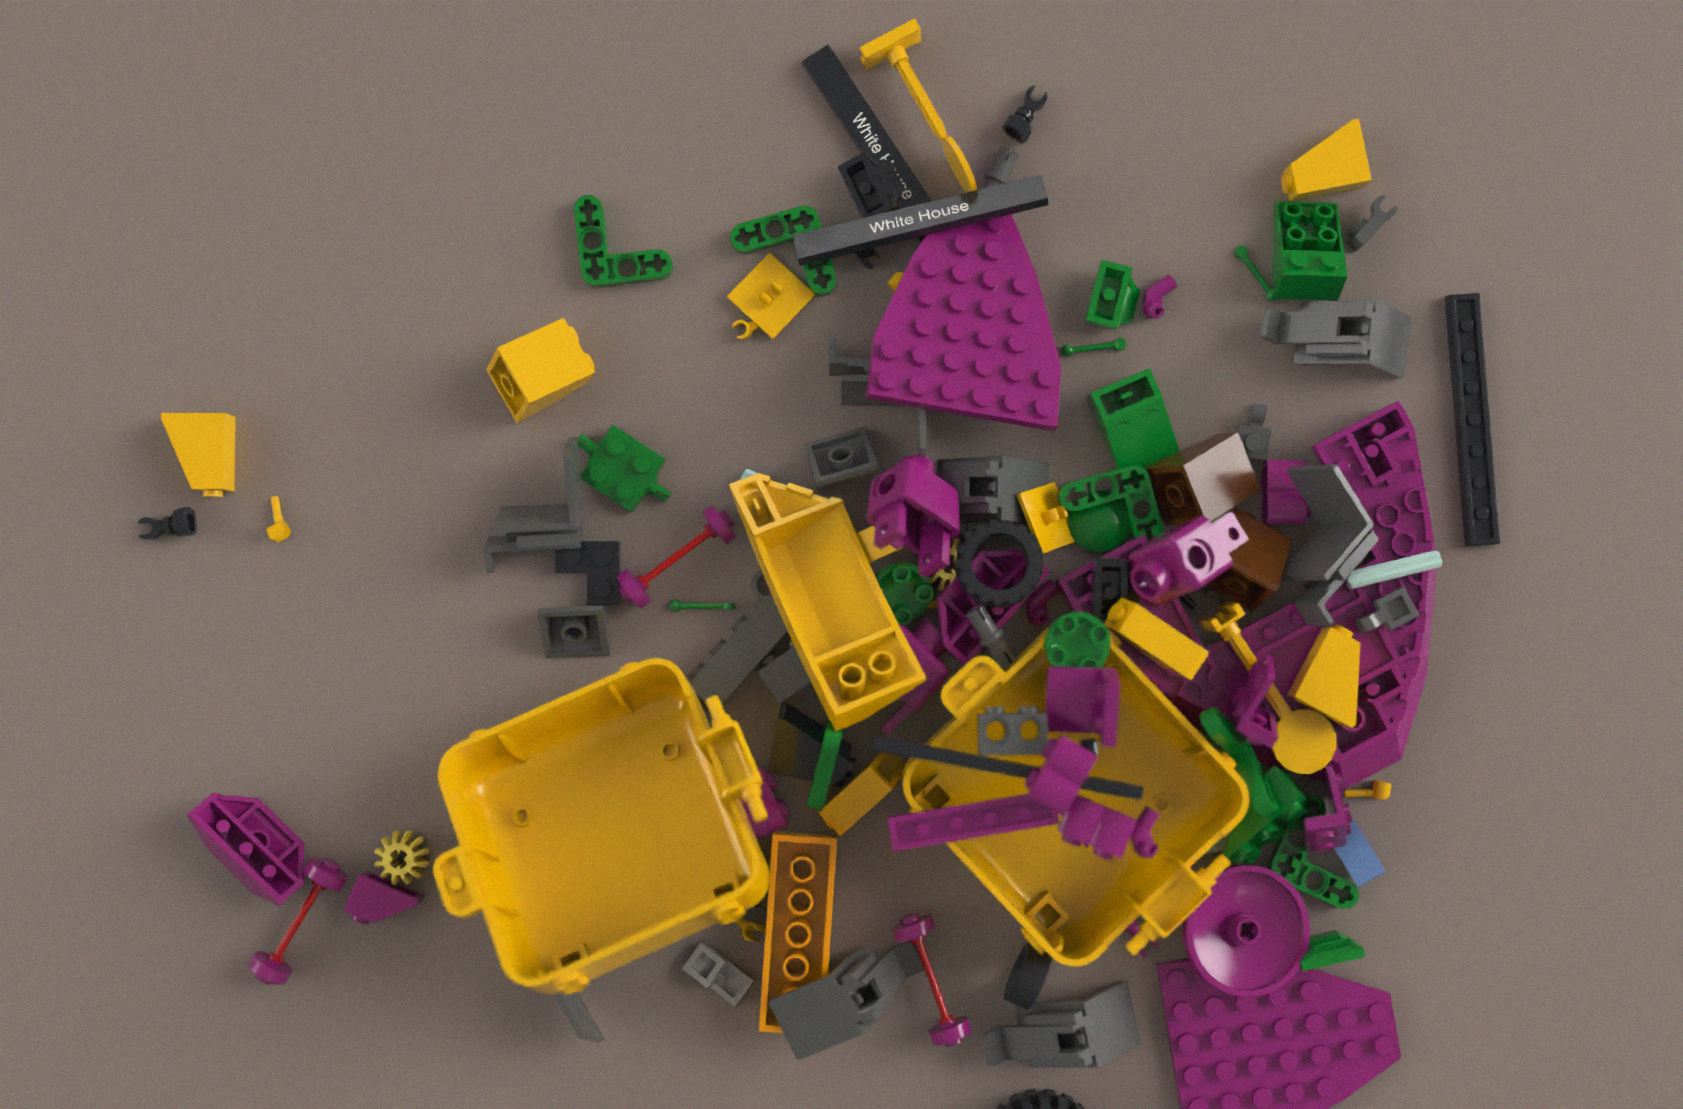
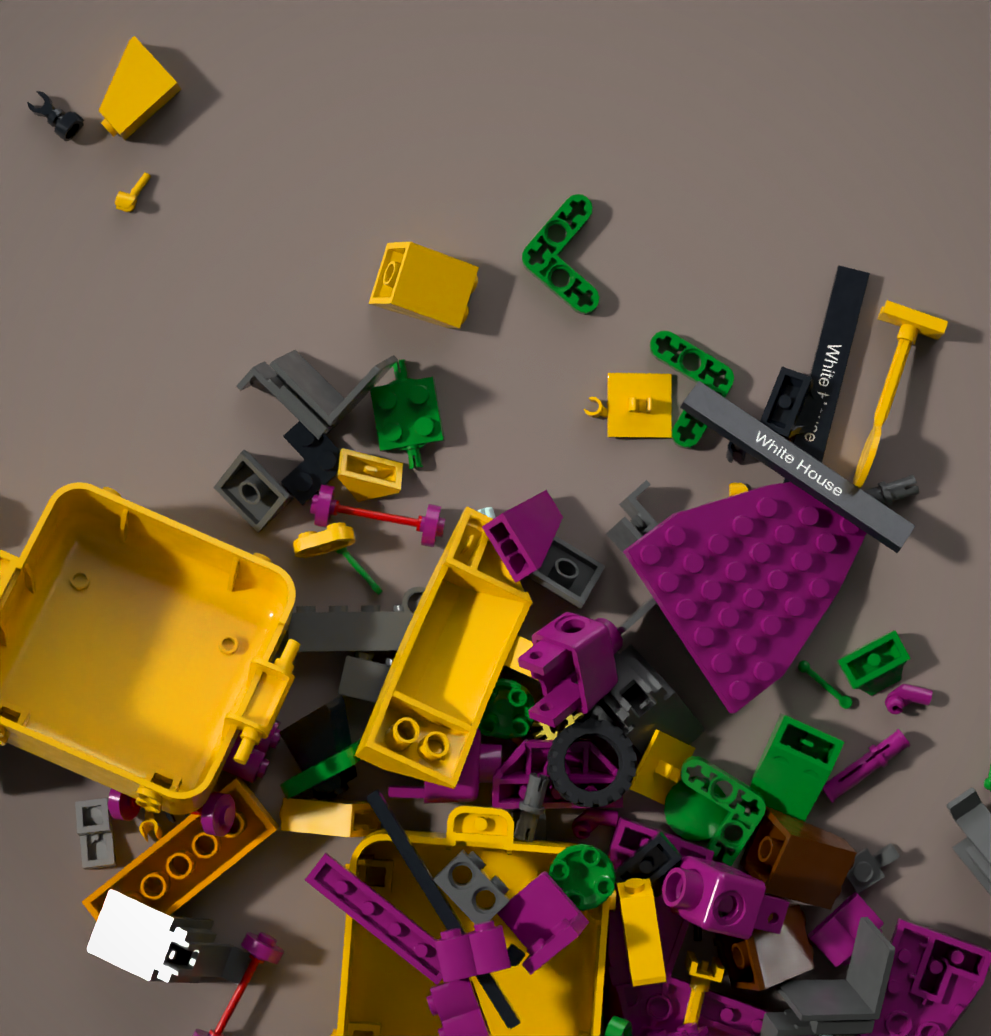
camera: 50 degrees right, 0 degrees up
(641, 536) = (369, 475): none -> yellow slope
(655, 620) = (317, 543): none -> yellow plate
(785, 872) = (216, 814): none -> magenta axle
(788, 460) = (525, 534): none -> magenta slope
(1018, 125) = (939, 472): black piece -> none
(1179, 369) = (875, 758): none -> magenta pin

